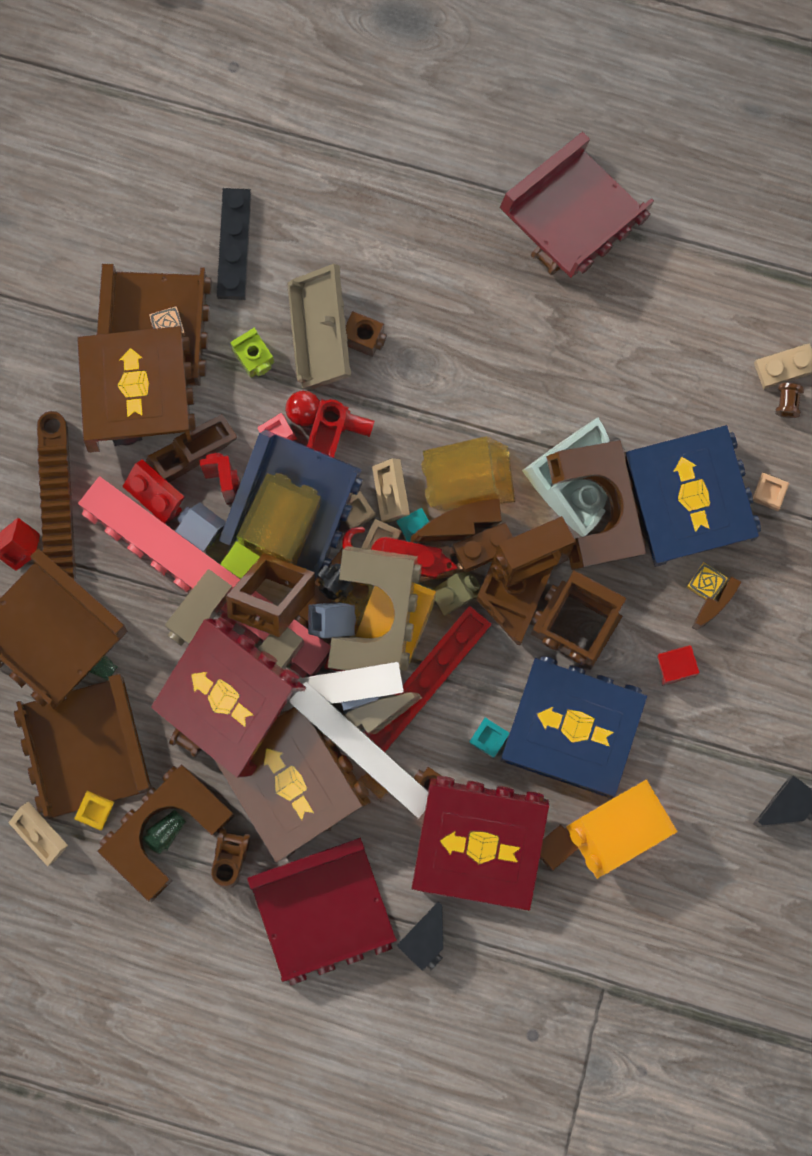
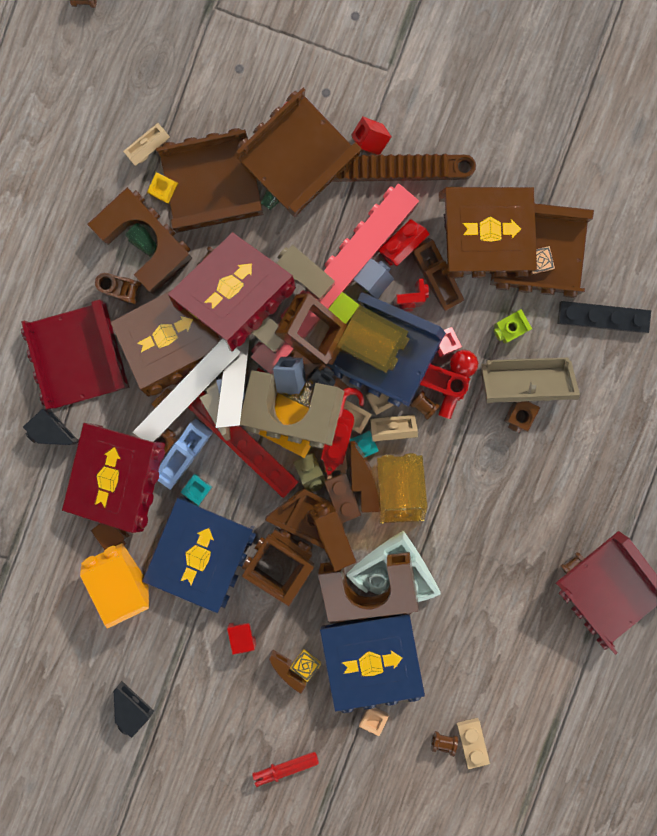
camera: 95 degrees right, 10 degrees up
(359, 452) = (424, 405): none -> reddish brown bush
(441, 756) = (183, 453): none -> light blue slope

